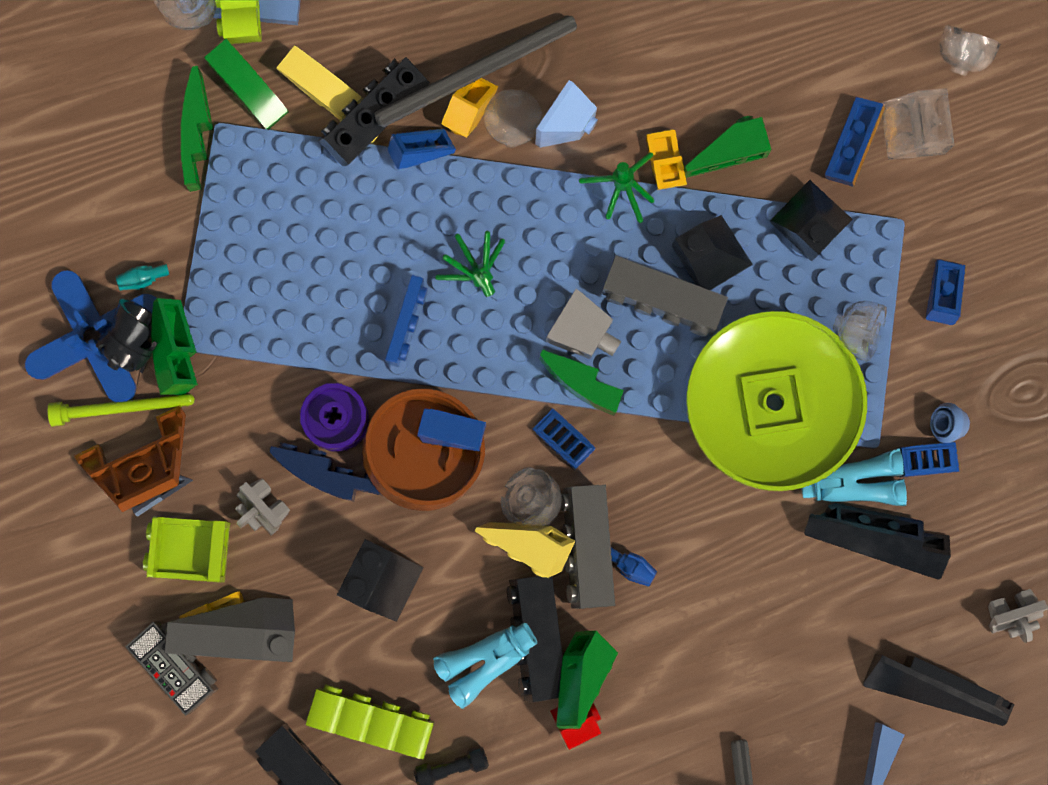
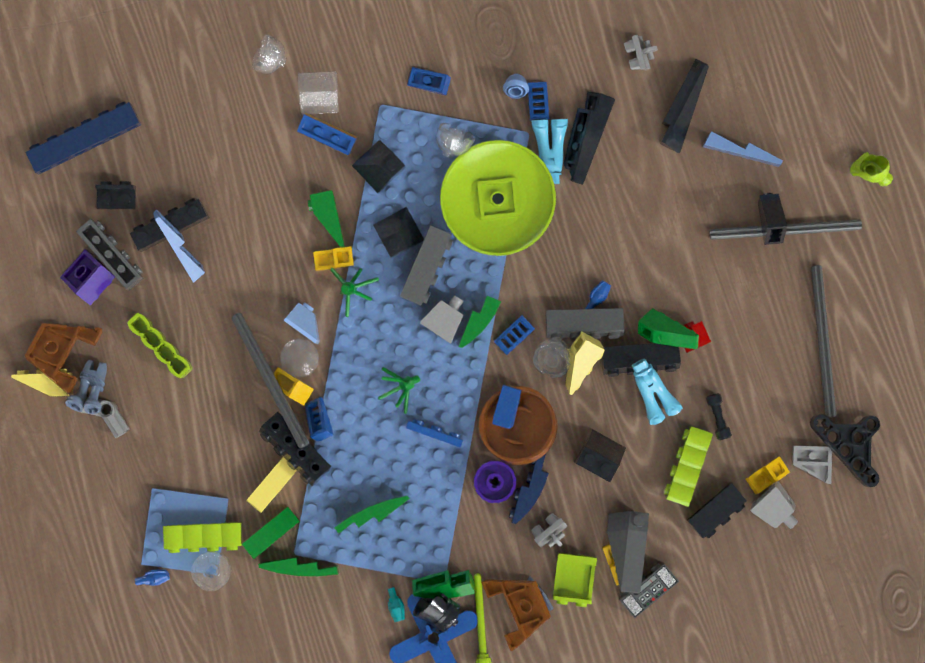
camera: 75 degrees left, 5 degrees up
(282, 240) = (378, 511): none -> green slope

